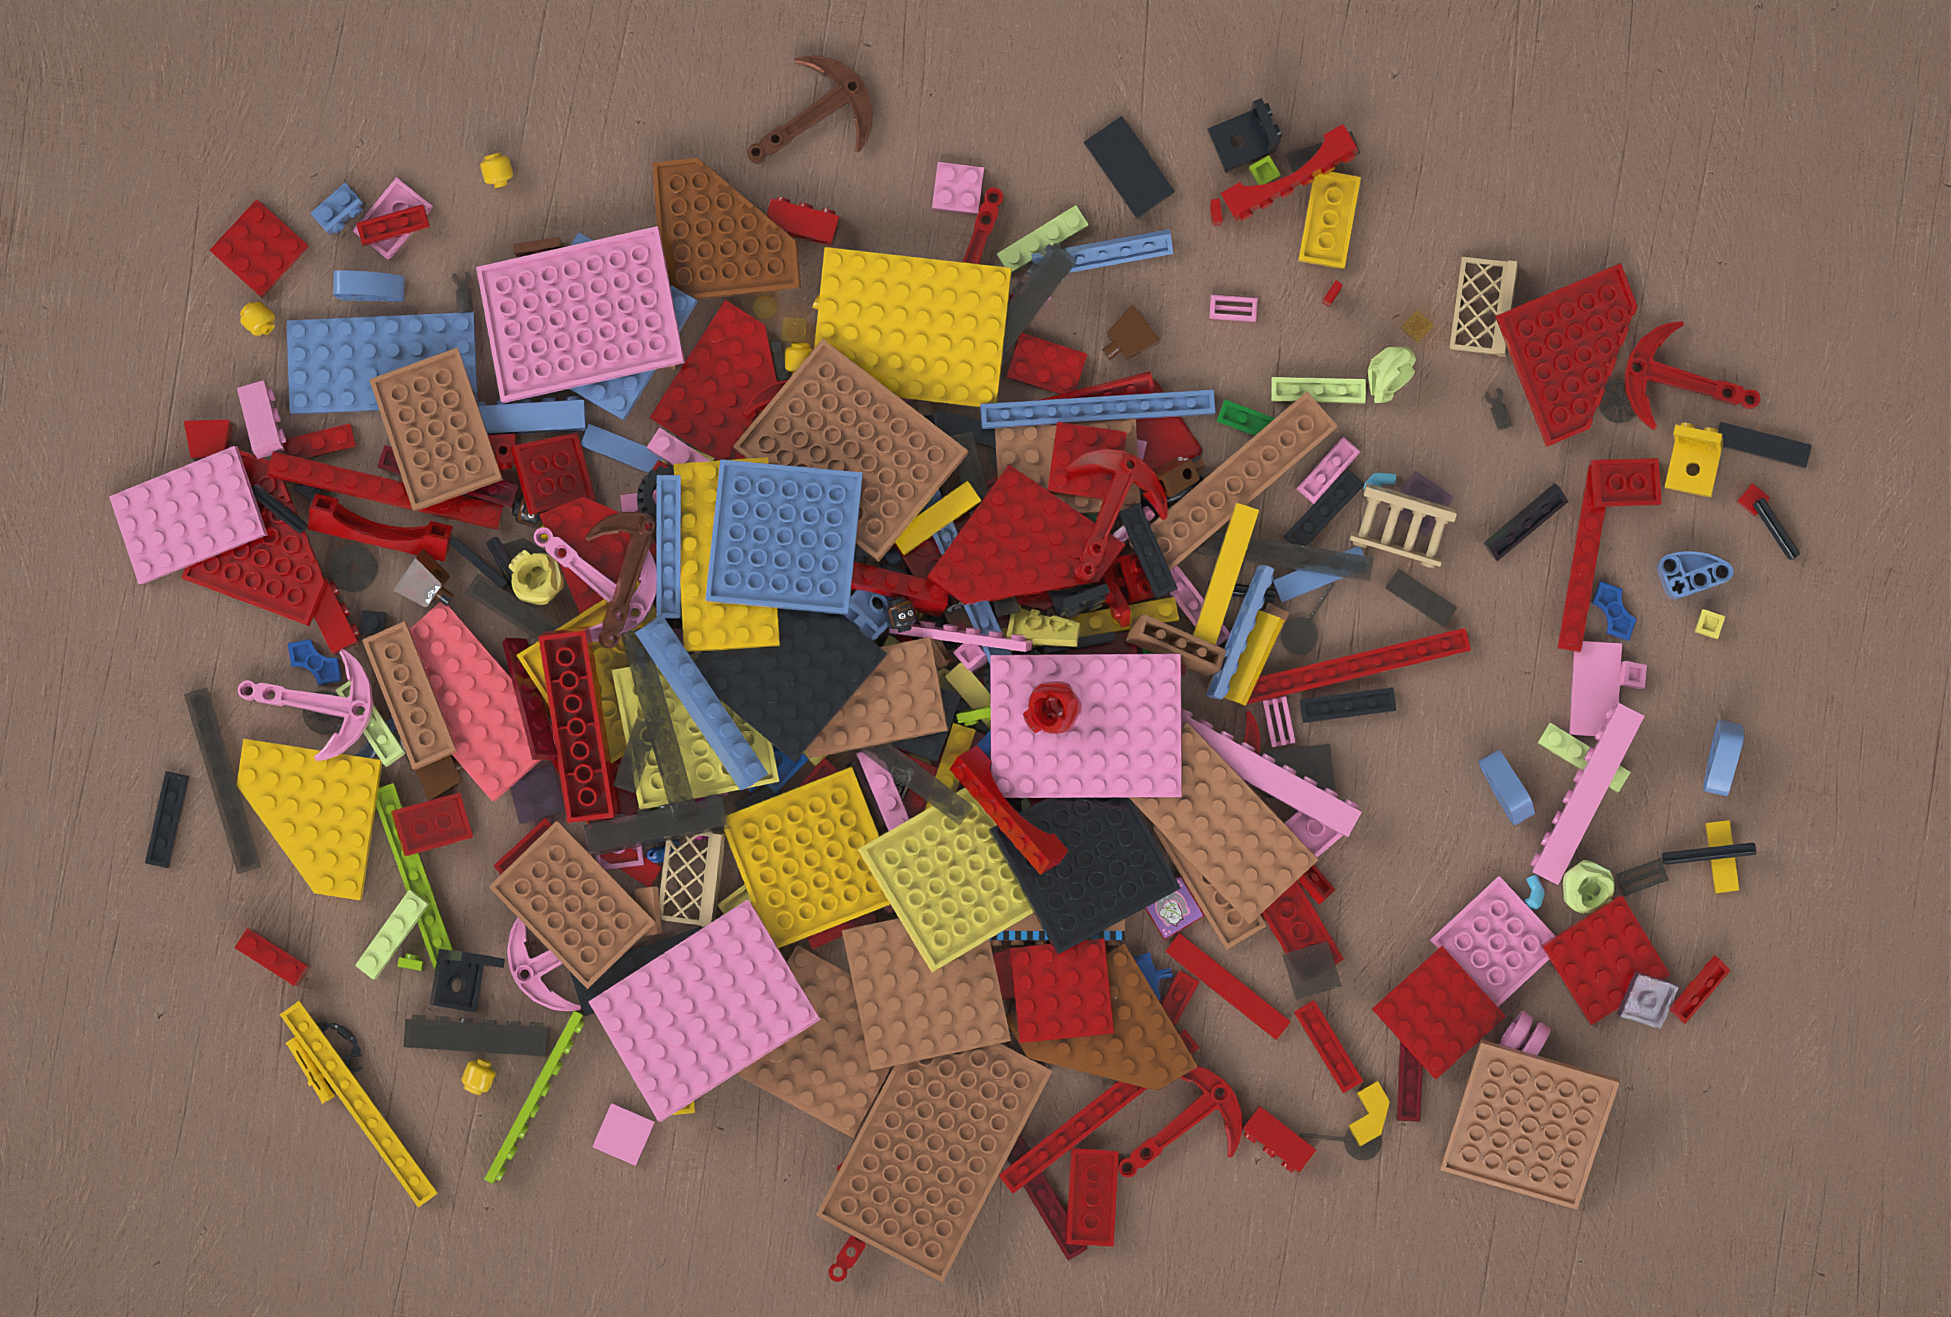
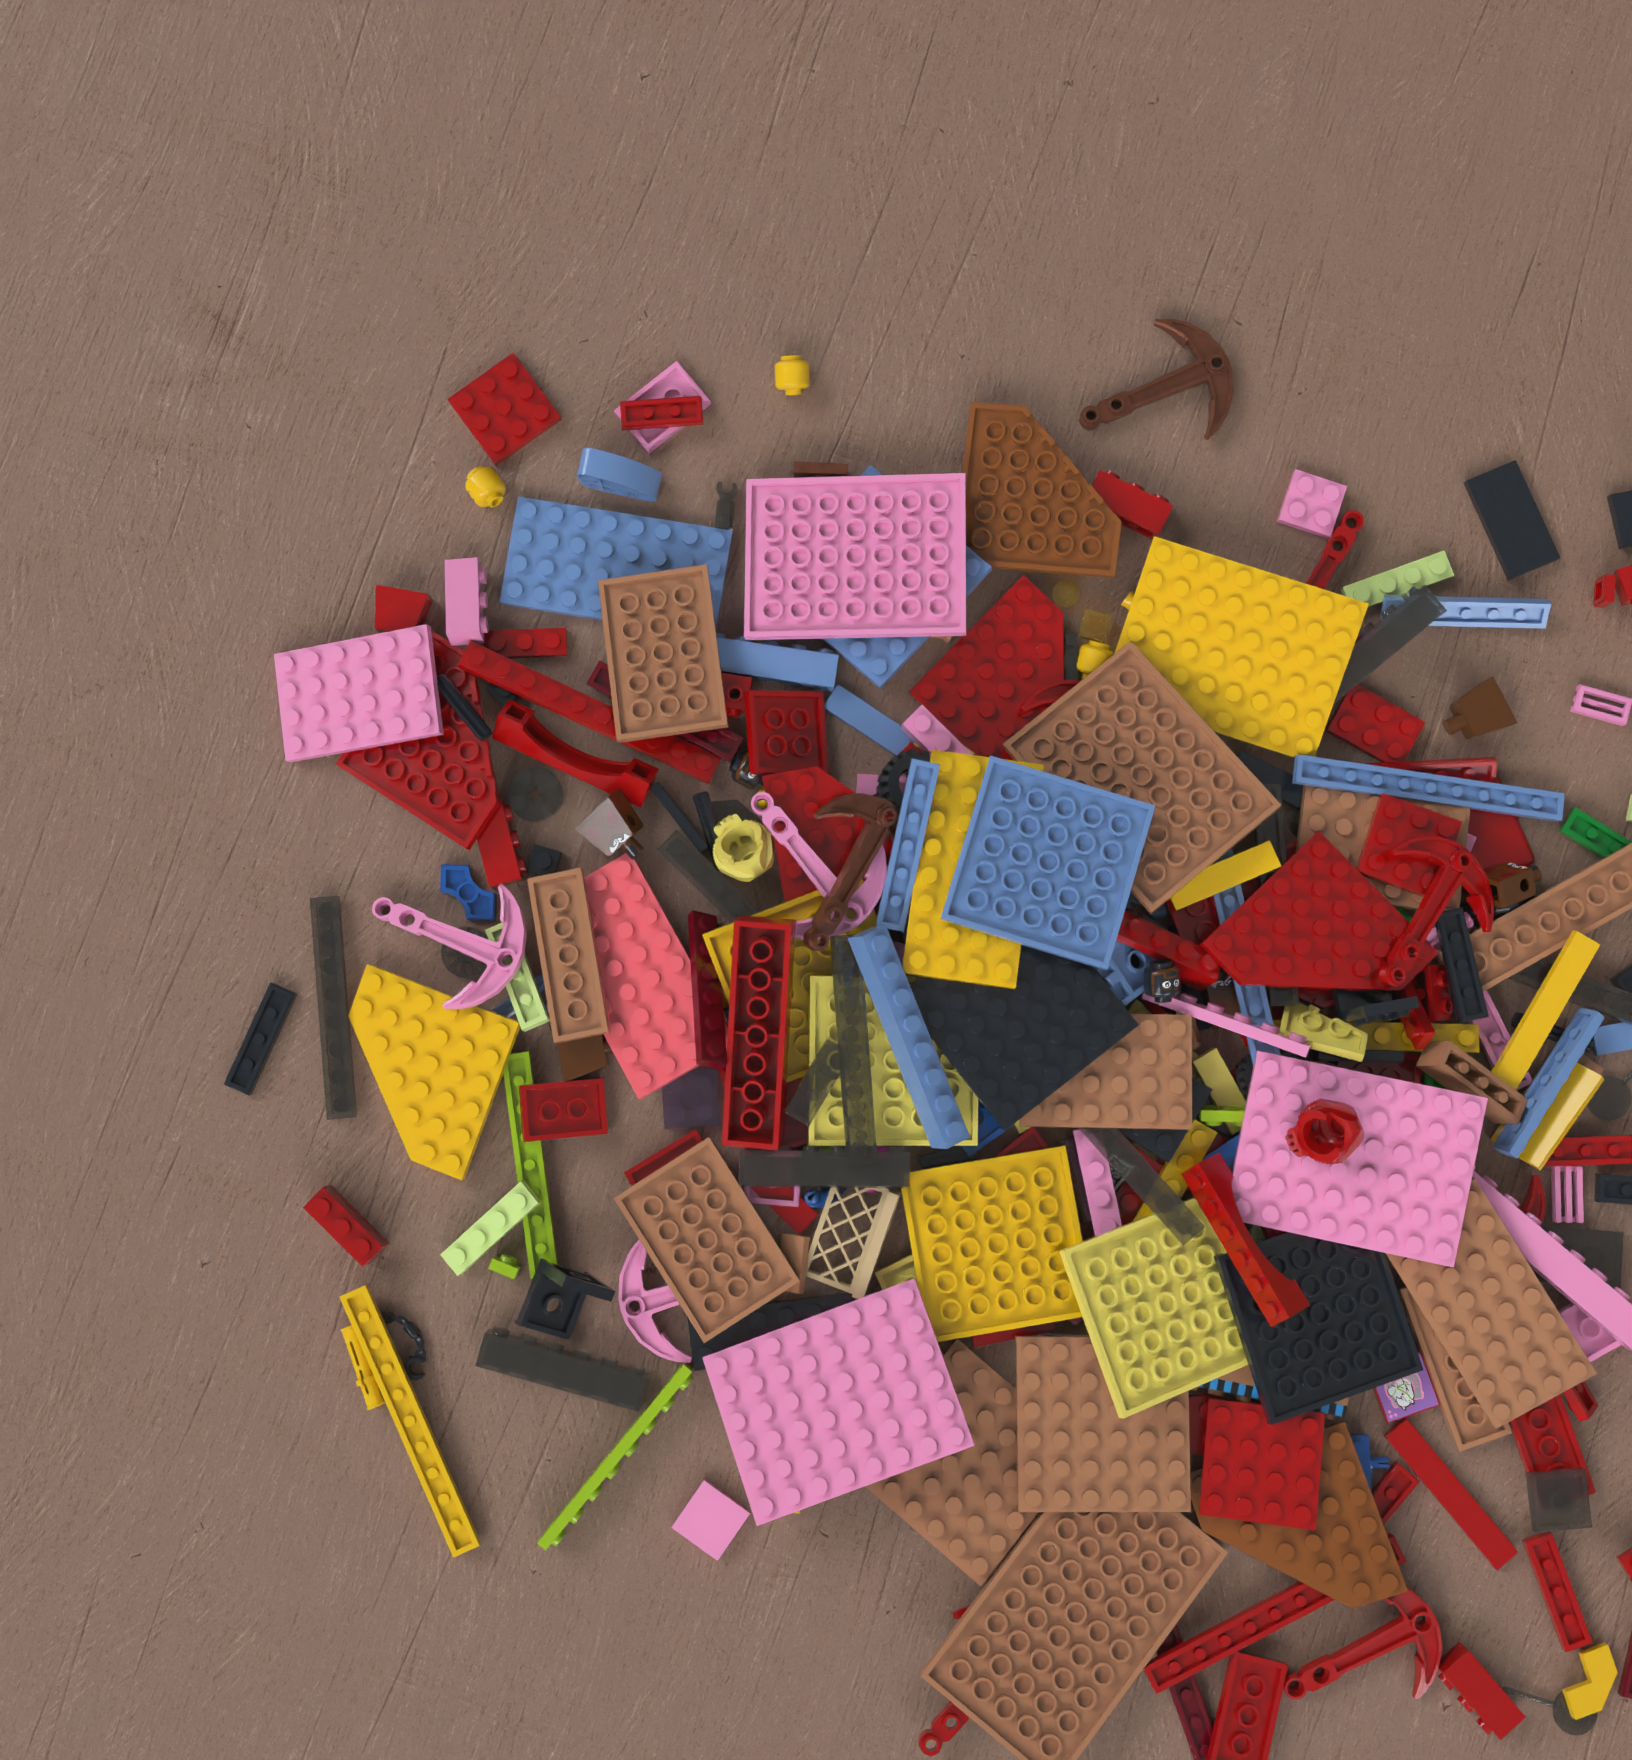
camera: 10 degrees right, 0 degrees up
(338, 209) = (602, 383): medium blue bracket -> none
(478, 1076) = (555, 1417): yellow head -> none
(971, 656) = (1229, 1044): bright pink brick -> none

